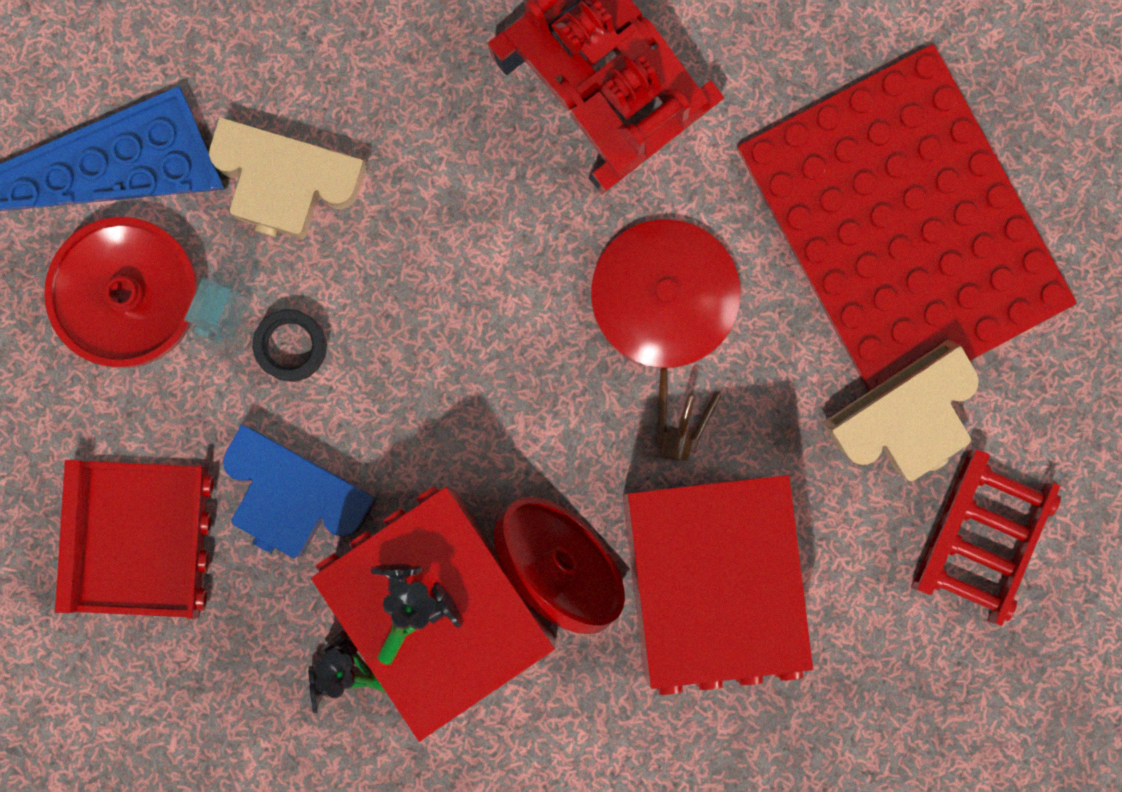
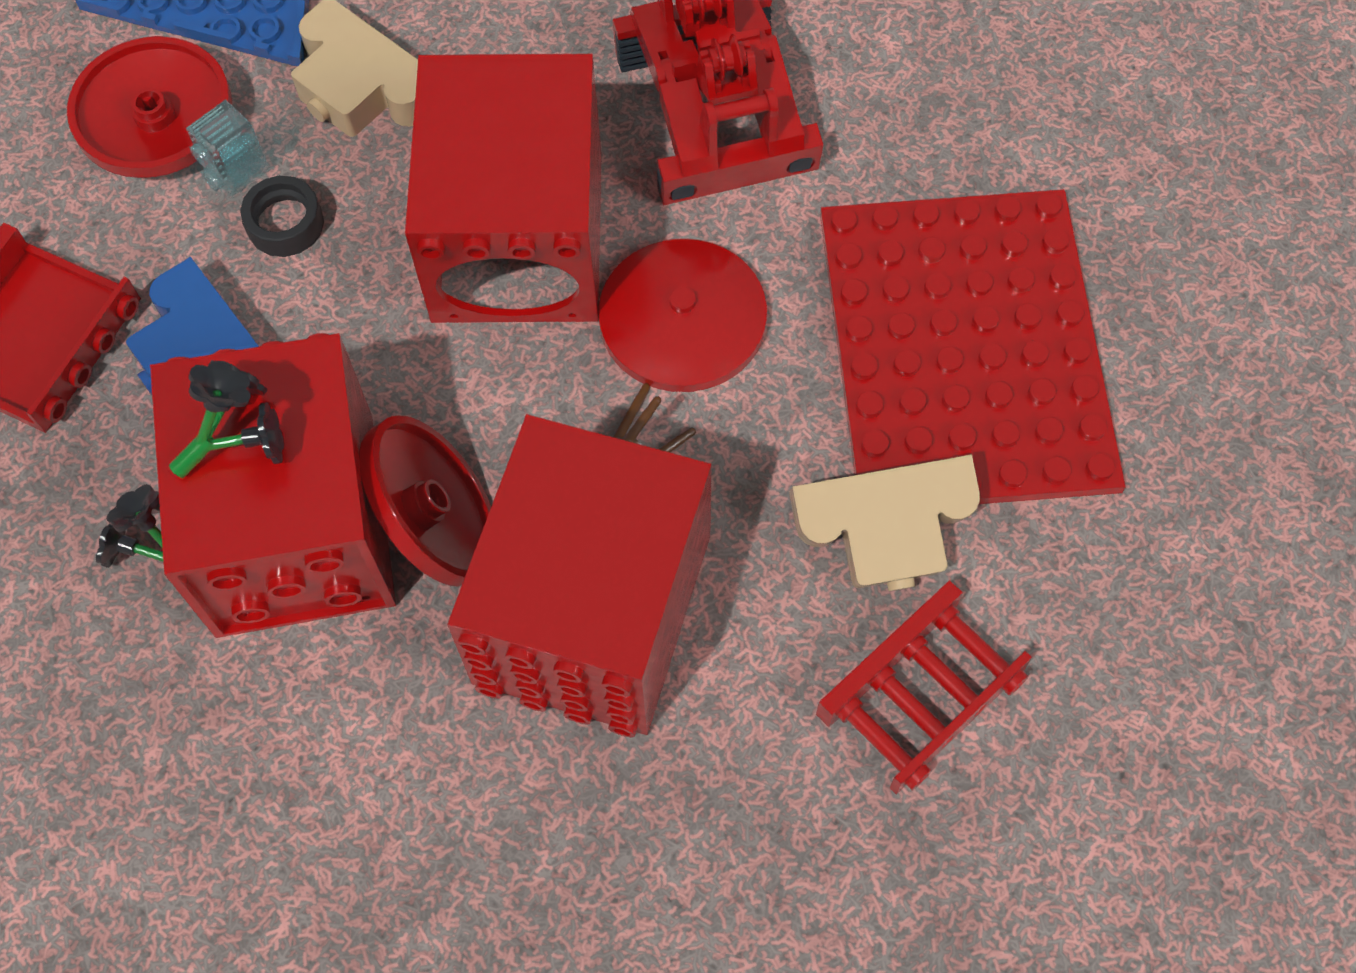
camera: 25 degrees right, 20 degrees down
(490, 261) = (507, 172): none -> red container

